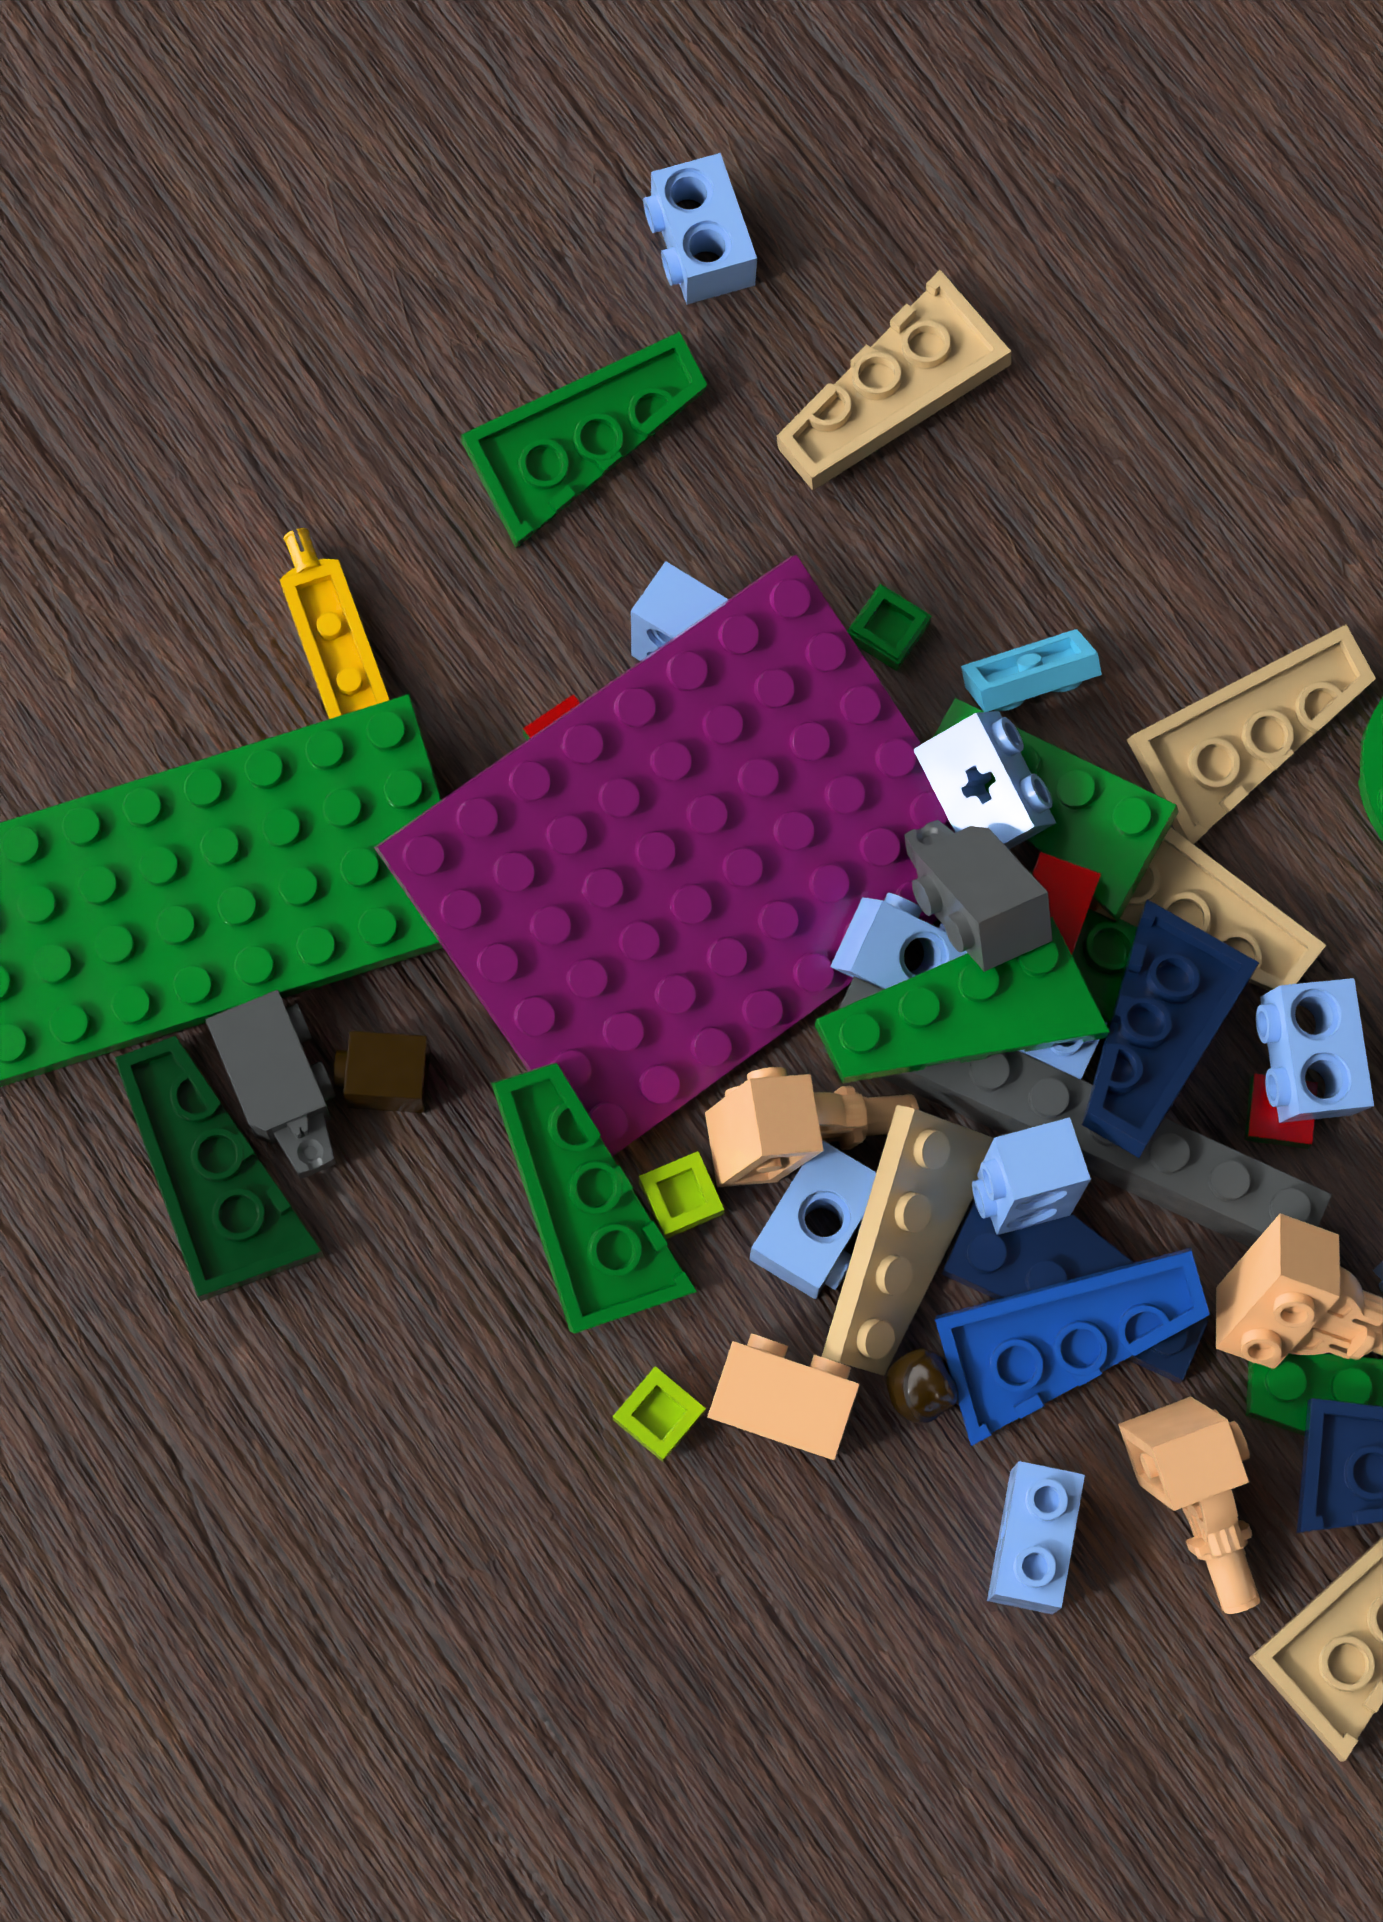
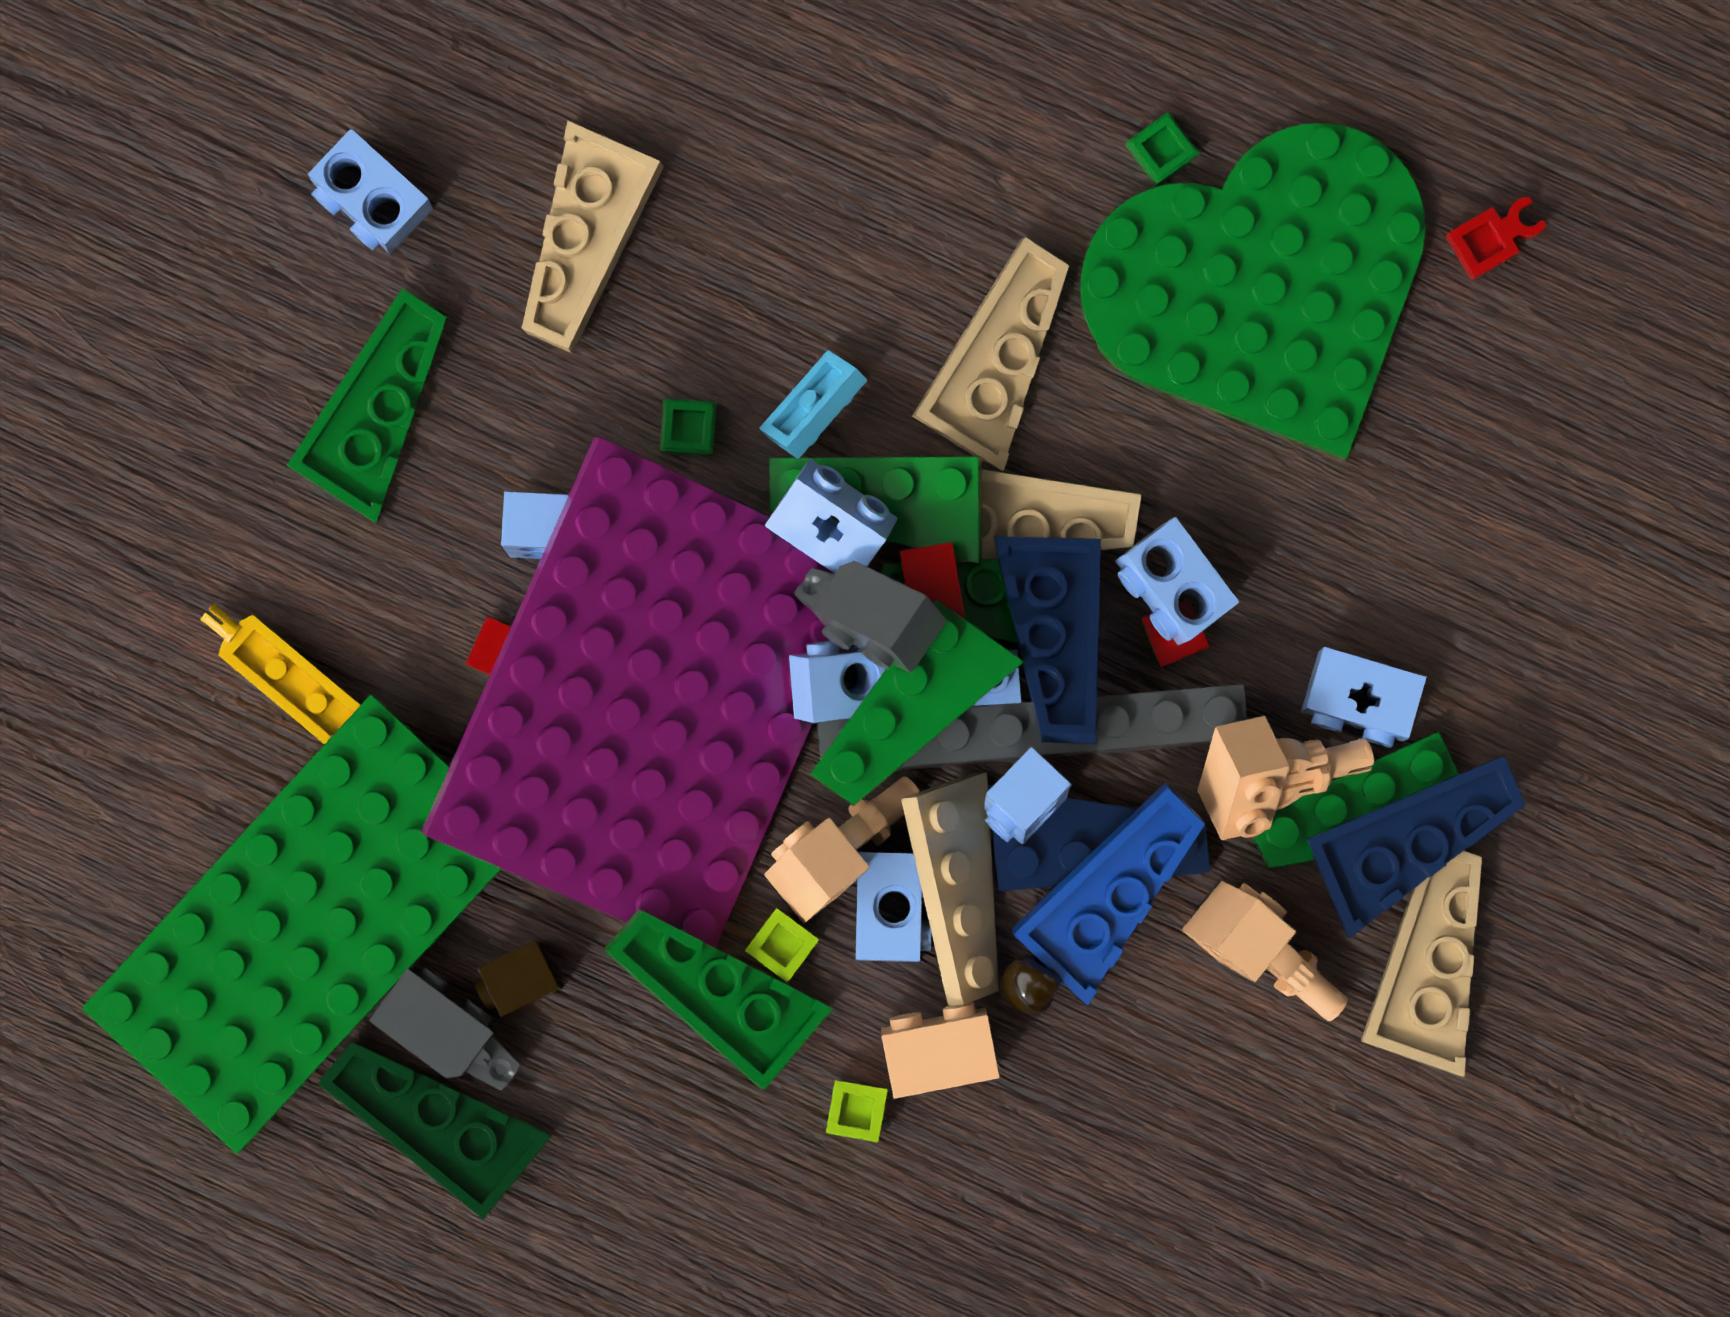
camera: 30 degrees left, 10 degrees up
(1036, 1537) = (1168, 1046): light blue brick -> none

